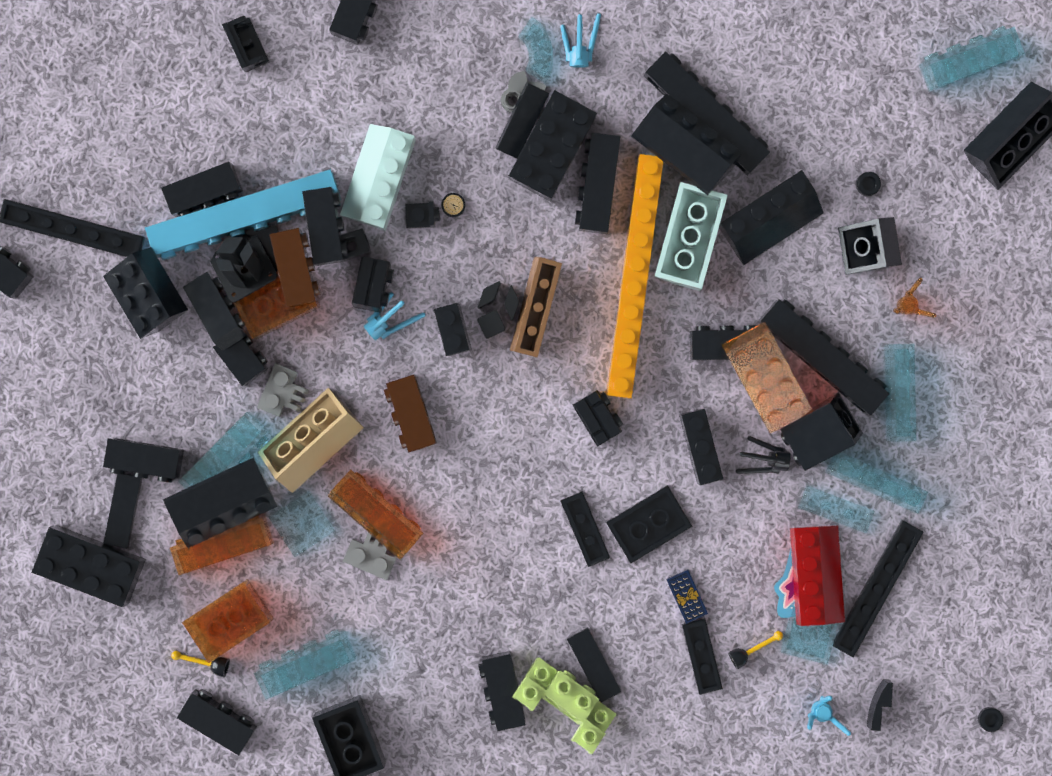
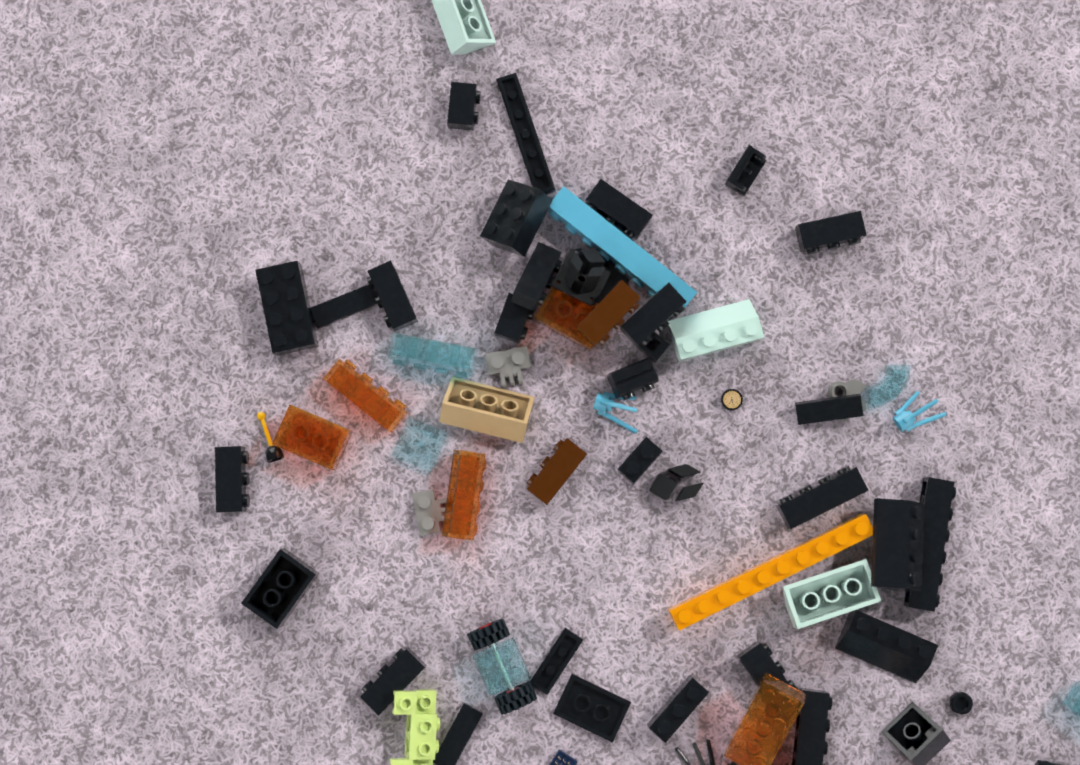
camera: 60 degrees right, 5 degrees down
(220, 502) = (397, 374): black slope -> none
(305, 664) = (316, 517): clear light blue brick -> none
(421, 215) = (708, 381): black bracket -> none
(535, 306) = (698, 511): medium nougat brick -> none
(552, 145) = (826, 444): black brick -> none
(556, 582) = (502, 666): none -> plate
(597, 417) = (647, 614): black brick -> none

